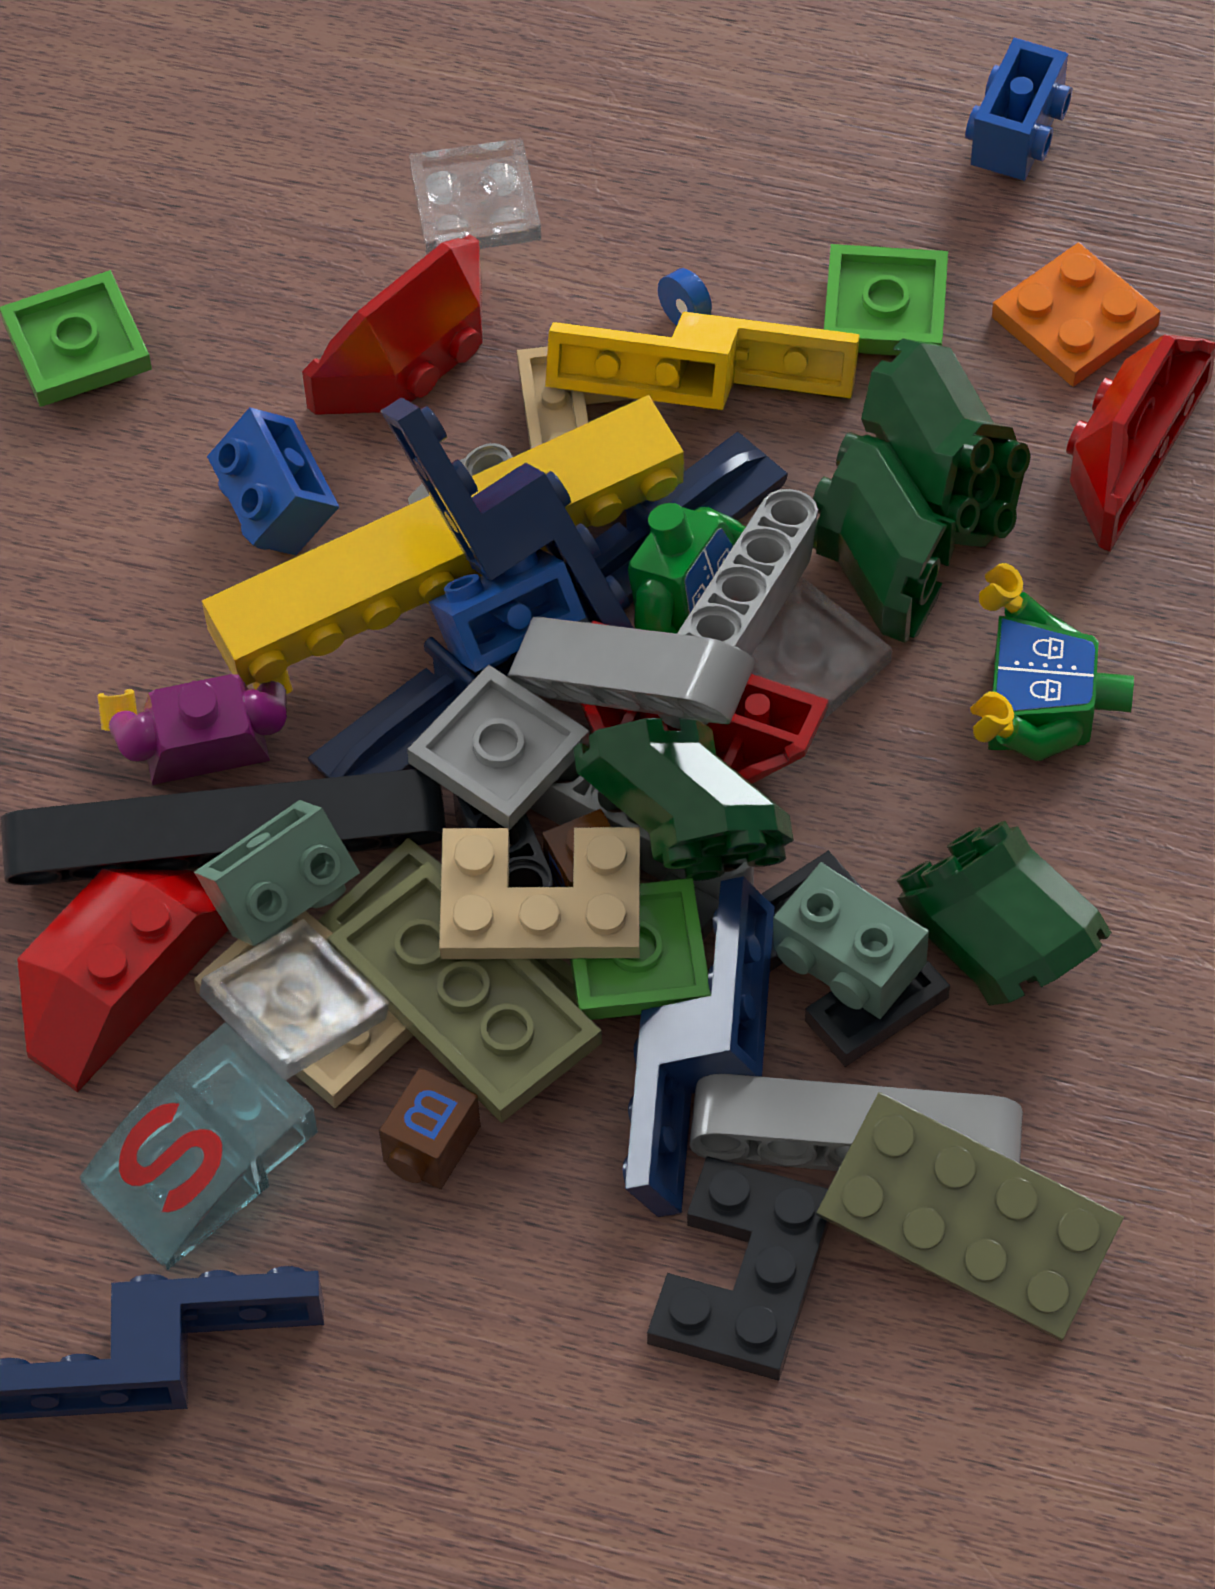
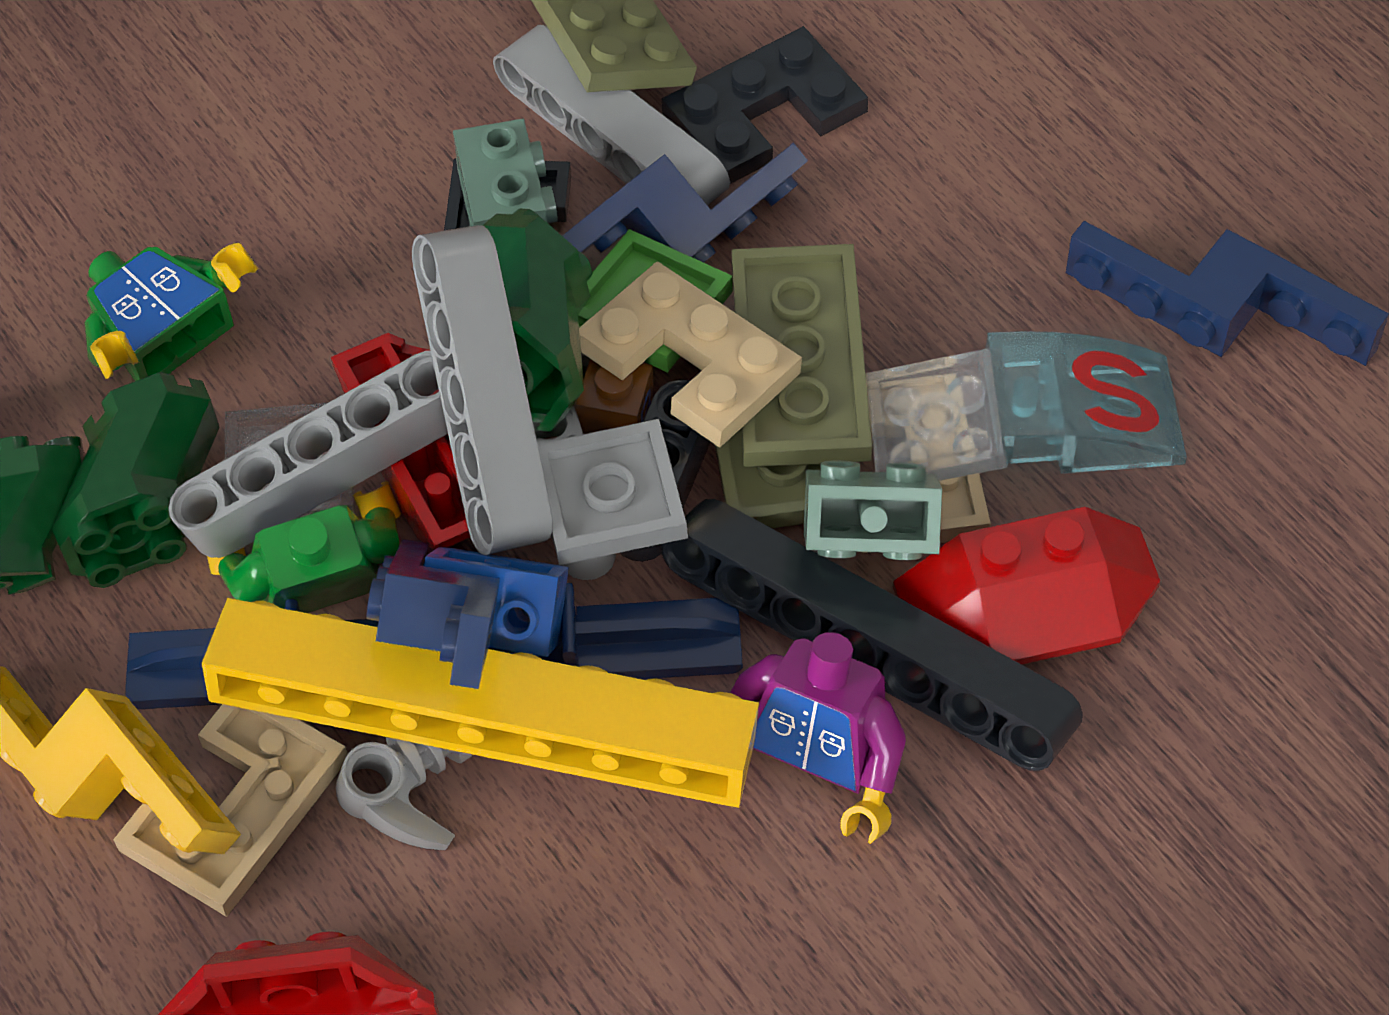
camera: 140 degrees left, 0 degrees up
(272, 482) = (558, 920): blue brick -> none
(429, 1129) = (903, 304): reddish brown brick -> none
(683, 292) = (29, 854): blue tile -> none
(1002, 912) = (374, 158): dark green brick -> none

